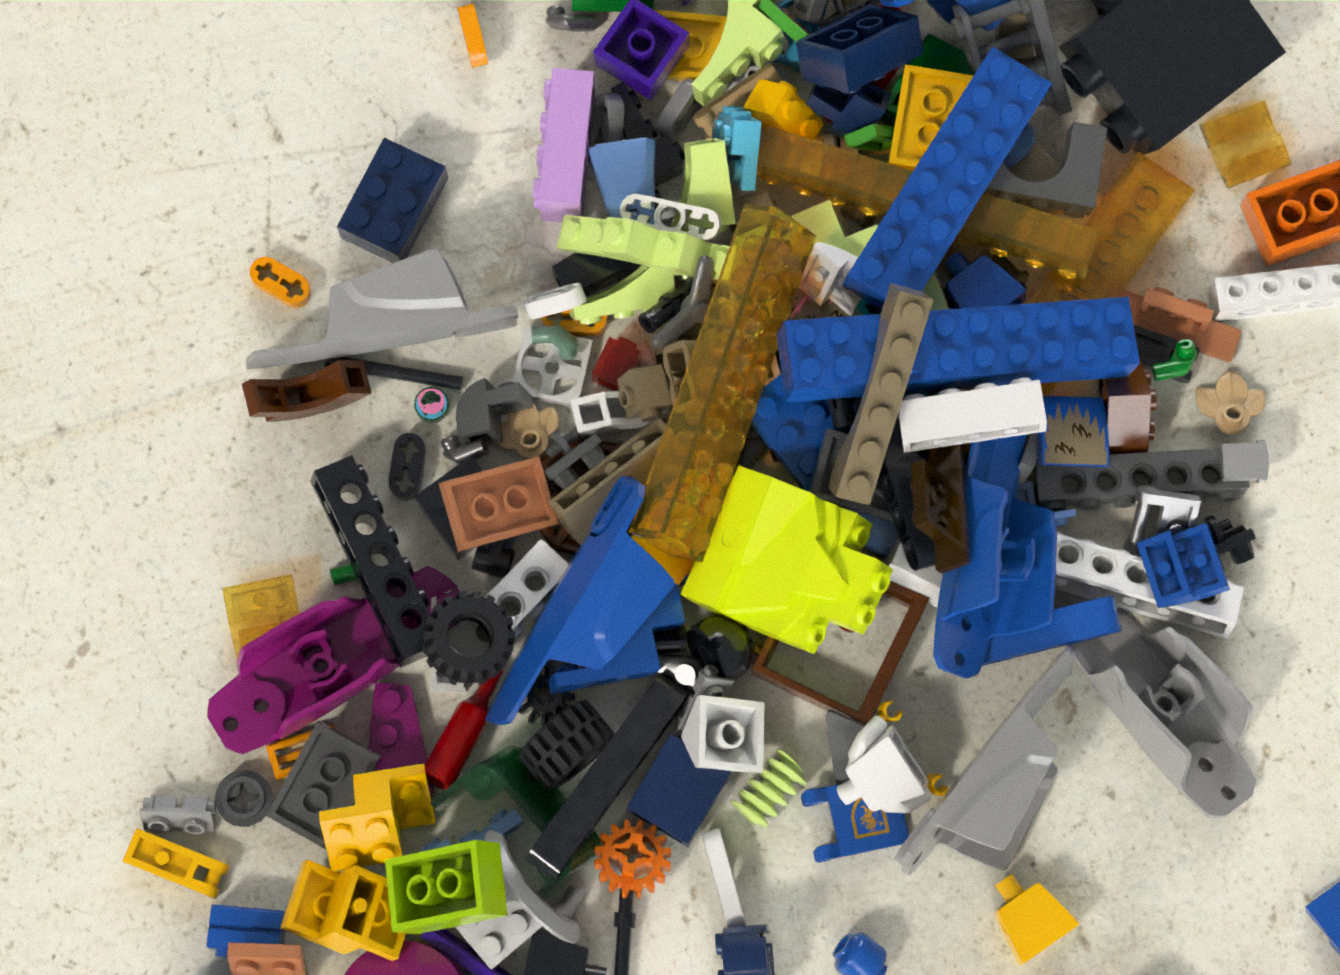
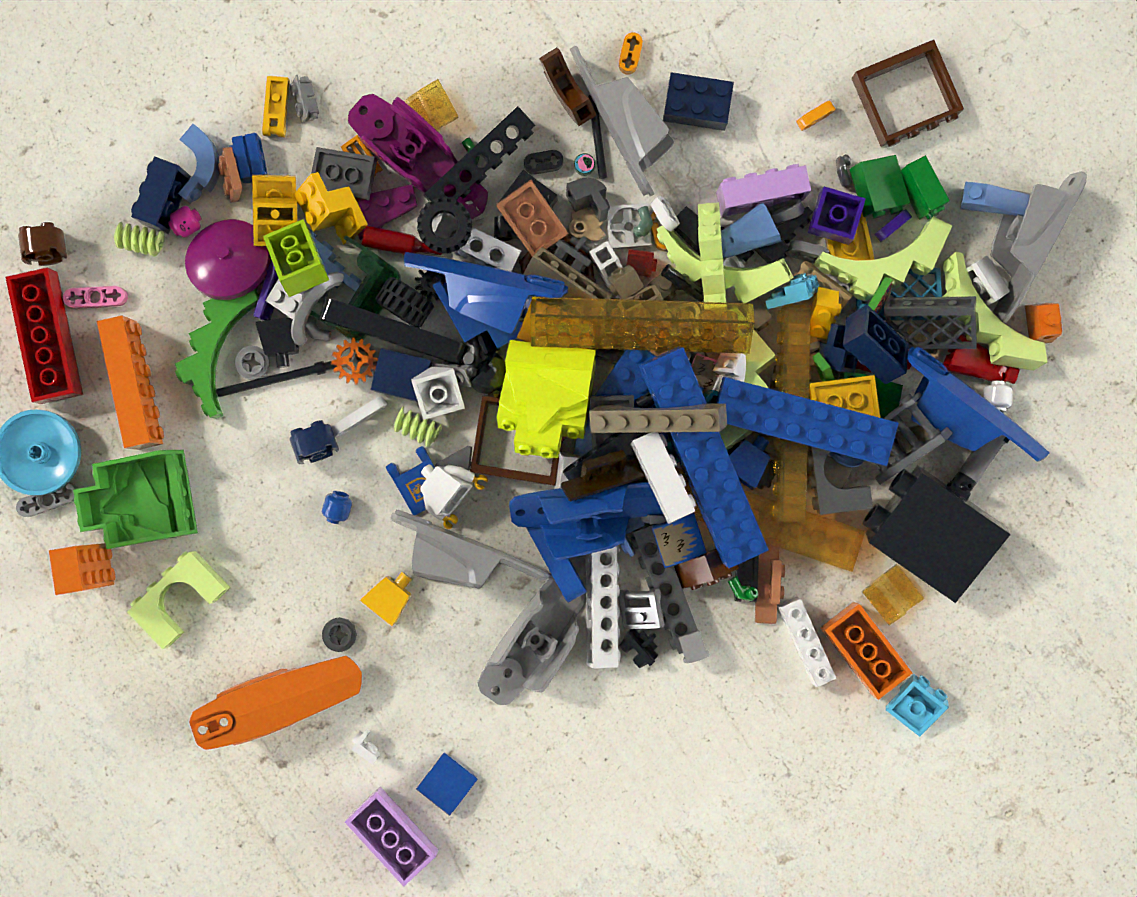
camera: 75 degrees right, 10 degrees up
(231, 788) = (328, 123): dark grey gear -> none
(459, 453) = (560, 189): flat silver arm -> none
(692, 308) = (683, 293): dark grey piece -> none
(698, 213) = (738, 247): white beam -> none
(1183, 566) = (618, 628): blue slope -> none
(1230, 398) = (733, 628): tan plate -> none

